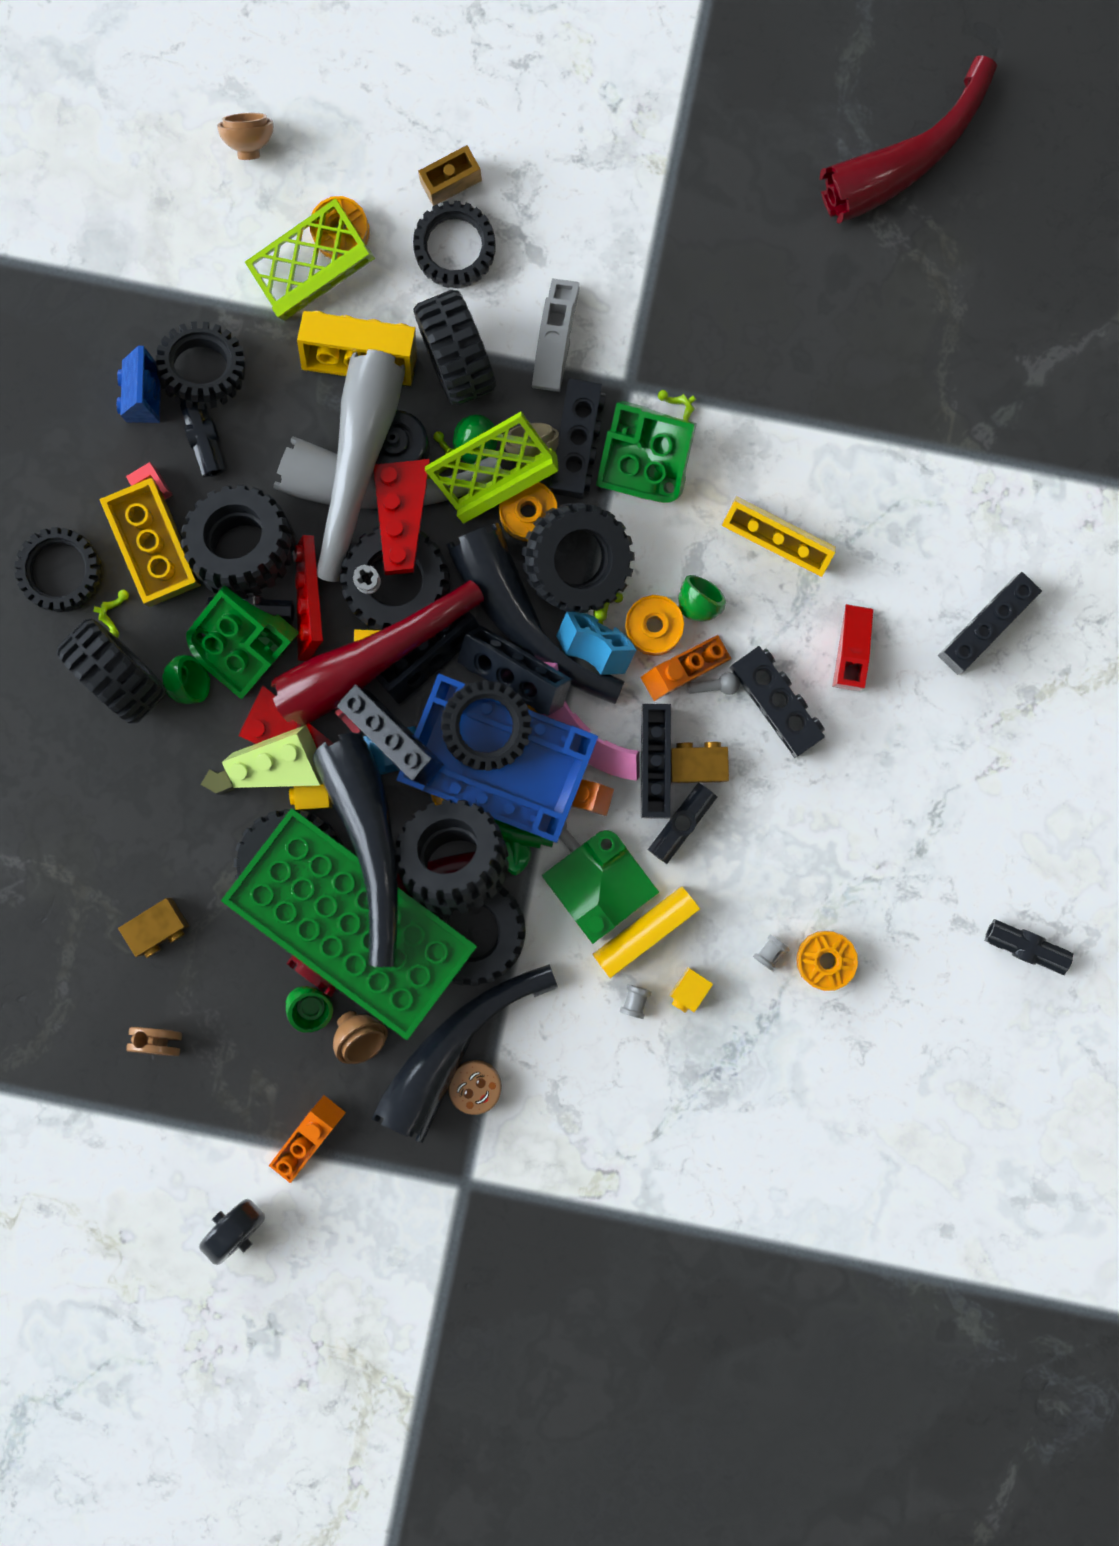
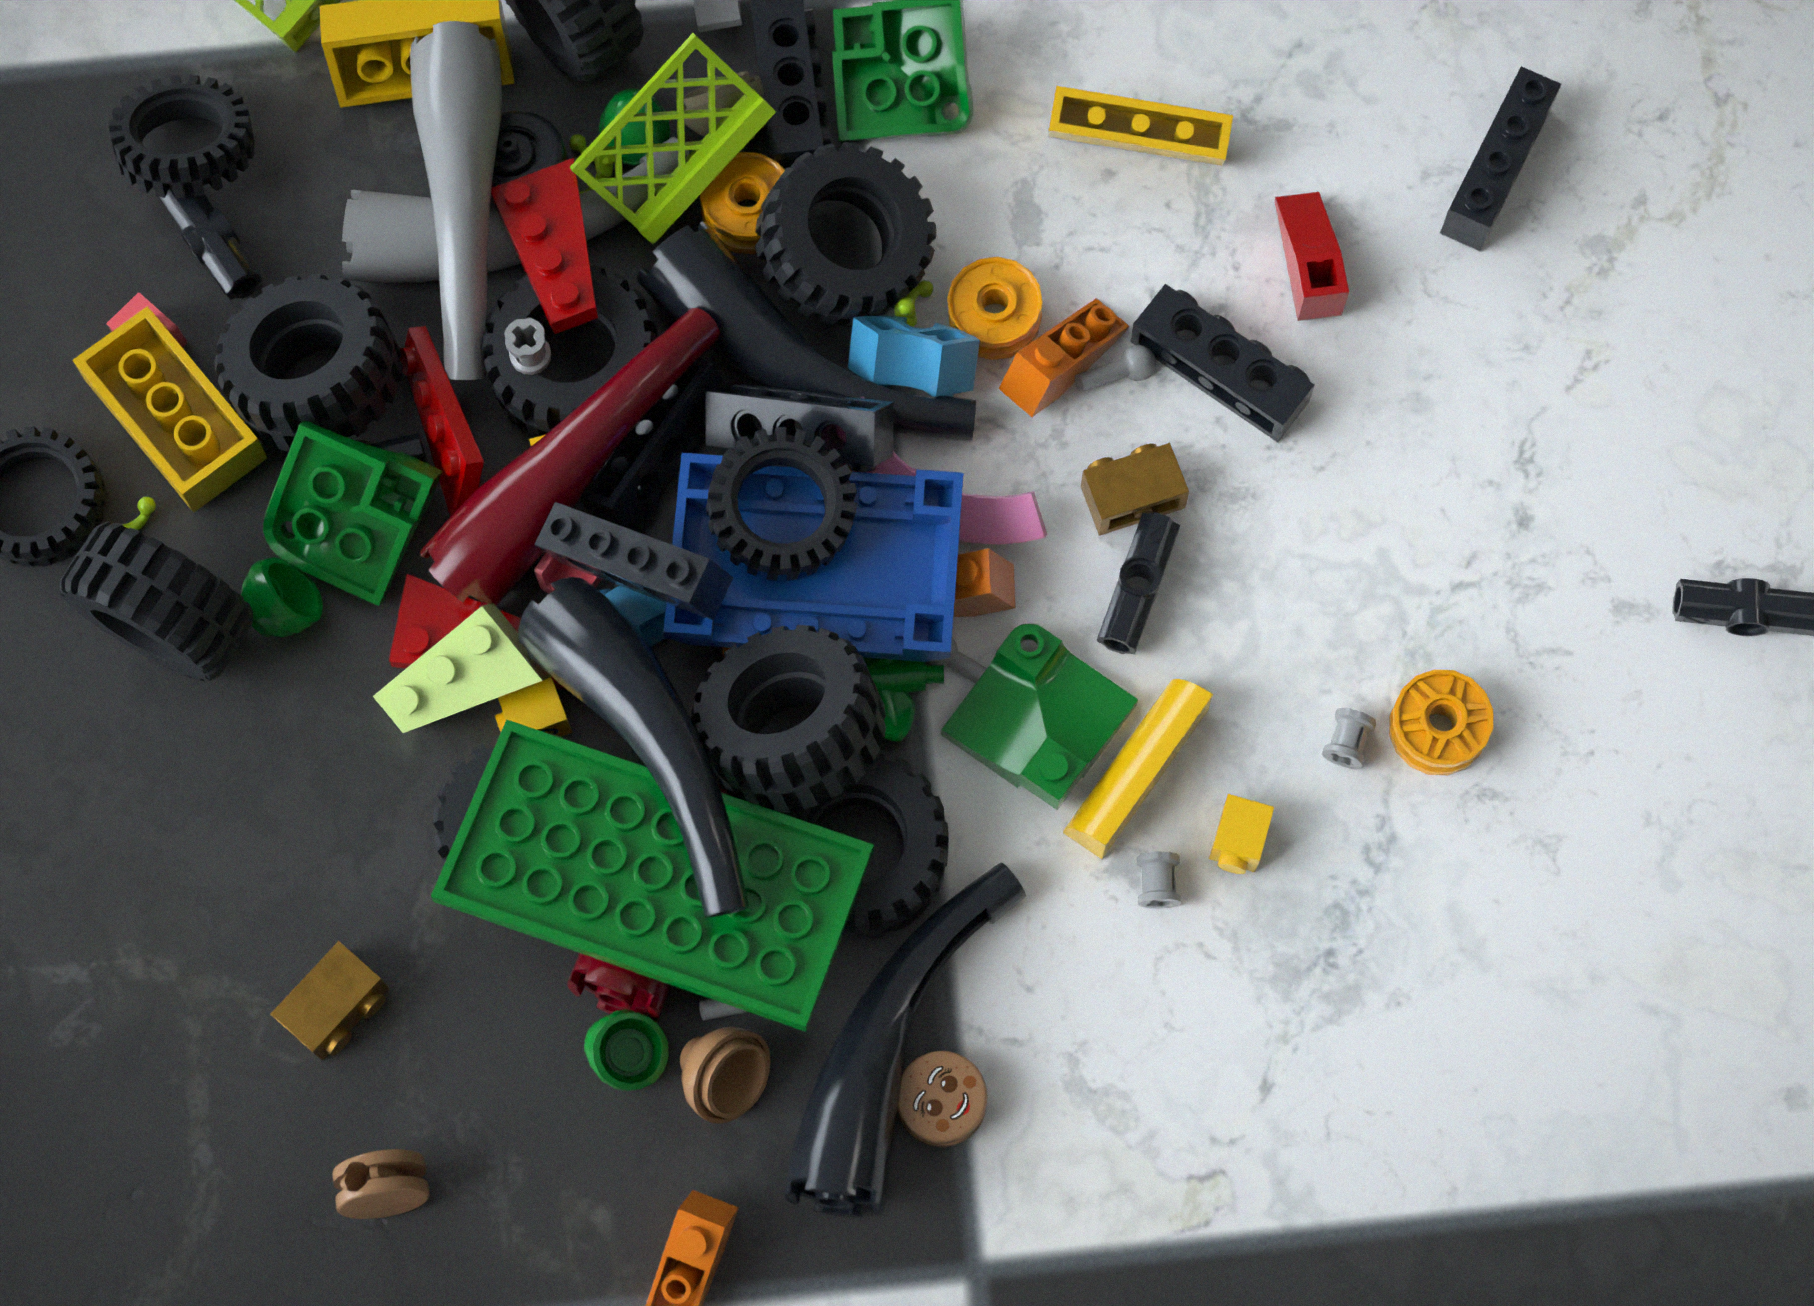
camera: 15 degrees left, 15 degrees down
(139, 388) = (94, 192): blue slope -> none
(217, 782) = (377, 738): olive piece -> none
(656, 761) = (1065, 500): black brick -> none
(700, 599) = (1052, 251): green hat -> none

